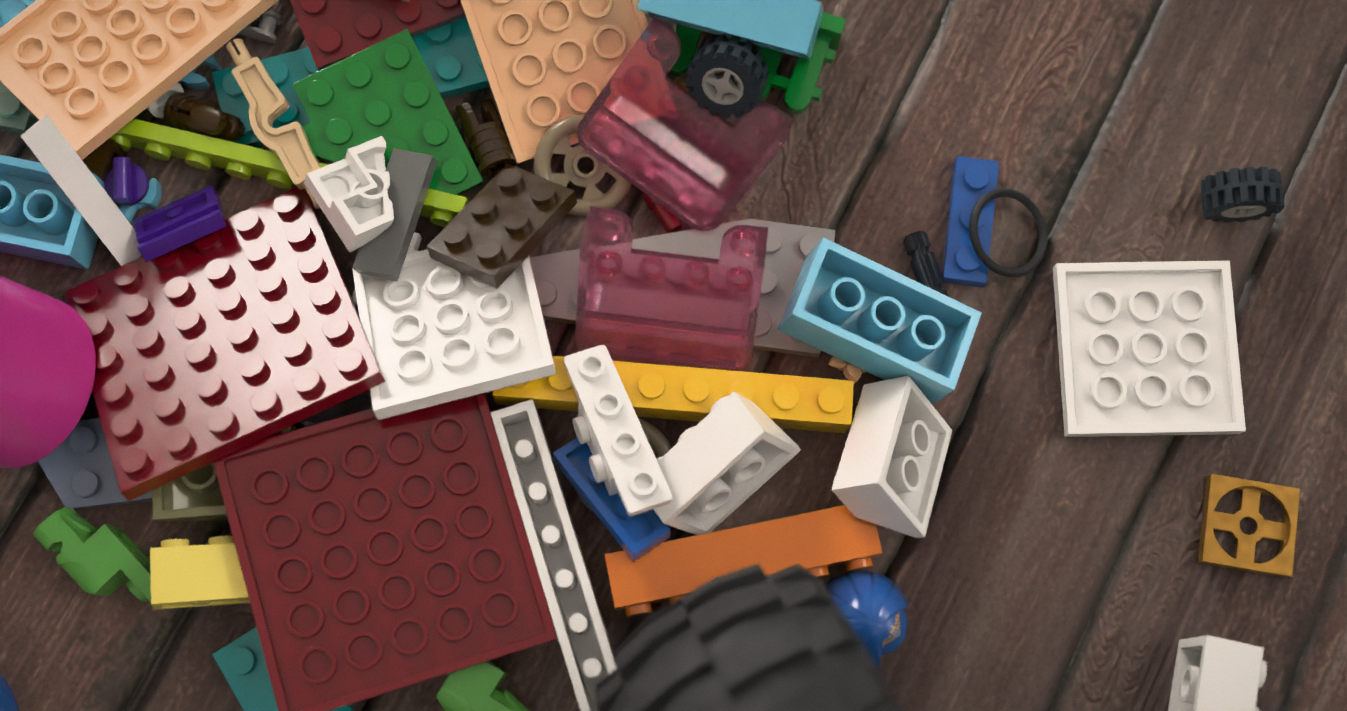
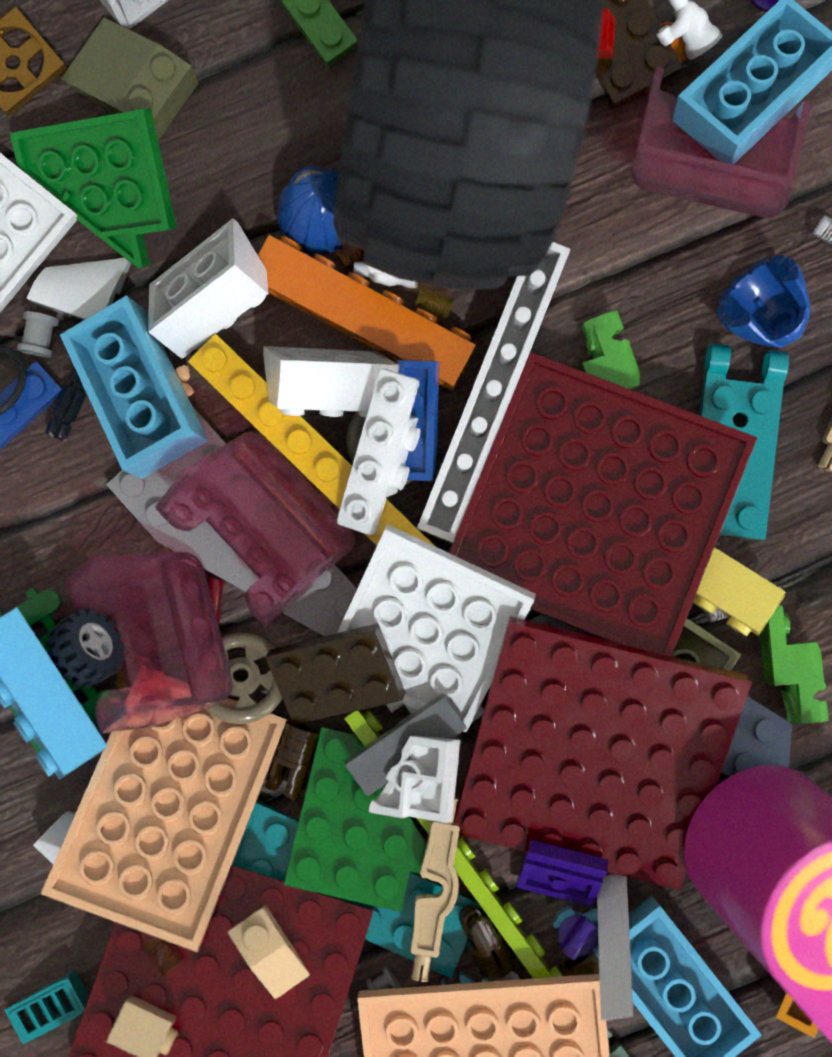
camera: 140 degrees left, 10 degrees up
(1005, 305) = (37, 334): none -> light grey bush
(1005, 375) = (79, 288): none -> white slope
(1073, 488) = (104, 173): none -> green wing
(1133, 597) = (131, 73): none -> olive slope

